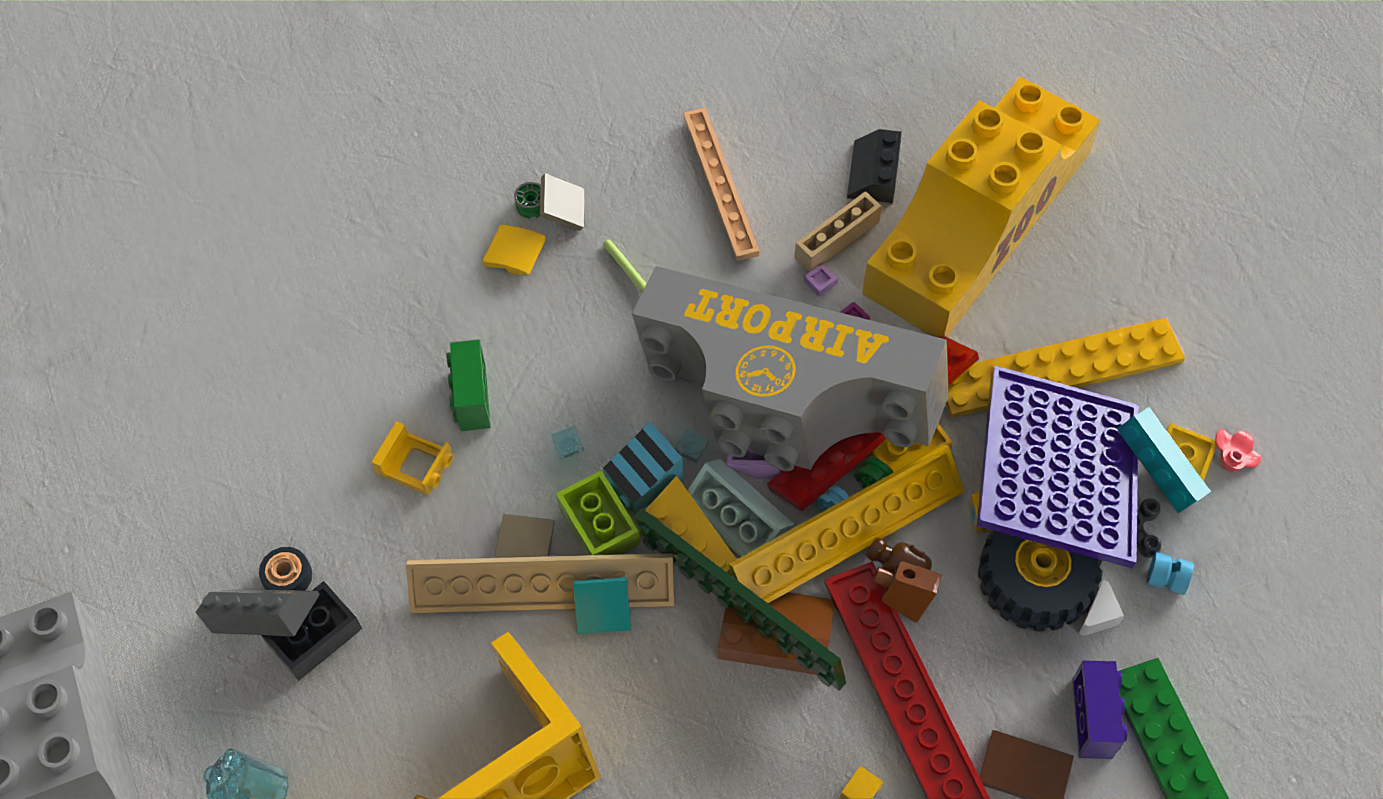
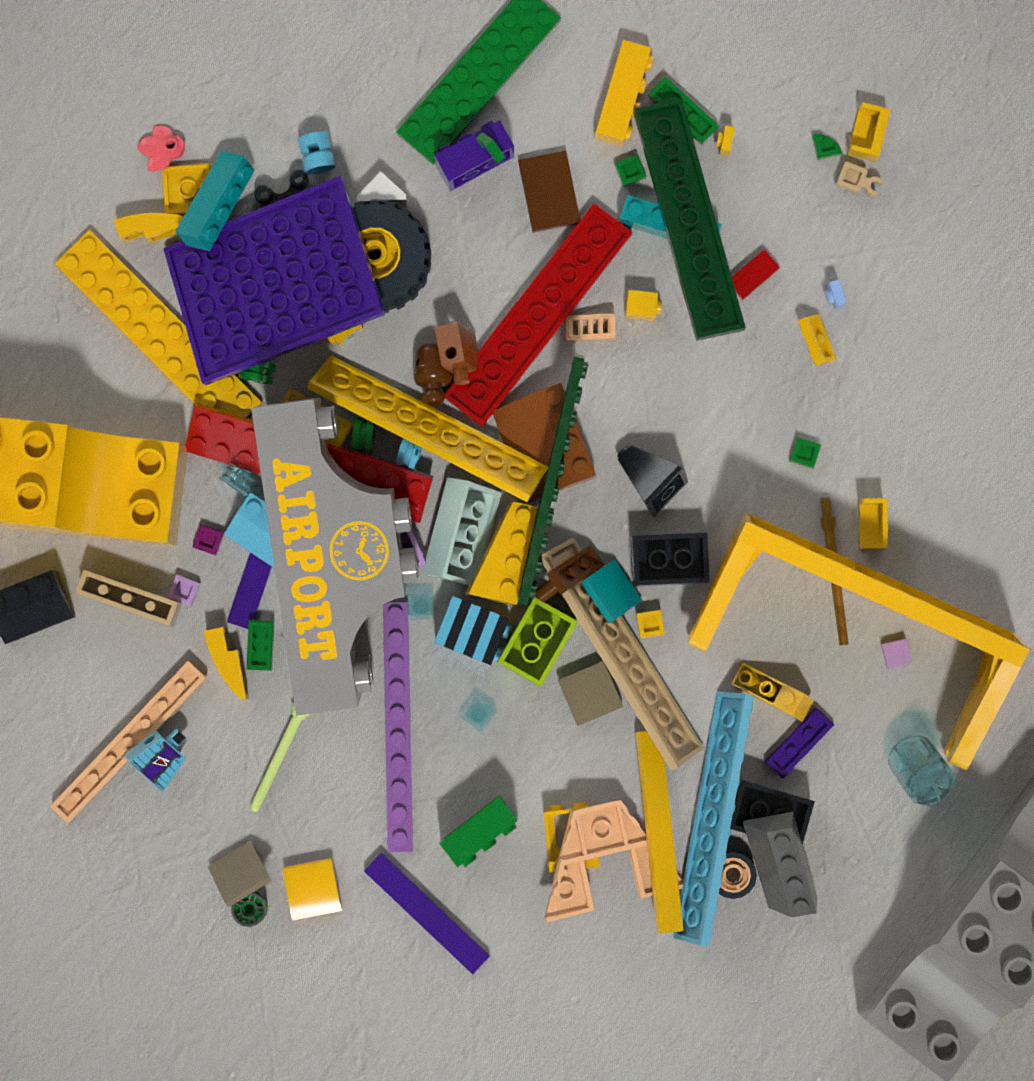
camera: 120 degrees left, 25 degrees up
(345, 579) = (714, 816): none -> medium azure plate
(353, 522) = (659, 835): none -> yellow tile
(355, 701) = (799, 742): none -> dark purple tile
(397, 481) = (589, 835): none -> light nougat wing
(413, 701) = (772, 692): none -> yellow slope
(434, 321) = (427, 913): none -> dark purple tile
(551, 627) = (650, 624): none -> yellow plate
(598, 673) = (670, 559): none -> black brick
(601, 378) = (398, 727): none -> medium lavender plate
(640, 576) = (570, 573): none -> reddish brown piece
(685, 700) = (652, 477): none -> black slope
(693, 190) = (158, 757): none -> torso
(742, 275) = (227, 662): none -> yellow slope
(855, 750) = (611, 335): none -> light nougat slope
(977, 421) = (259, 374): none -> green wheel
(1098, 713) = (491, 146): none -> green tile
(1167, 398) = (151, 225): none -> yellow slope

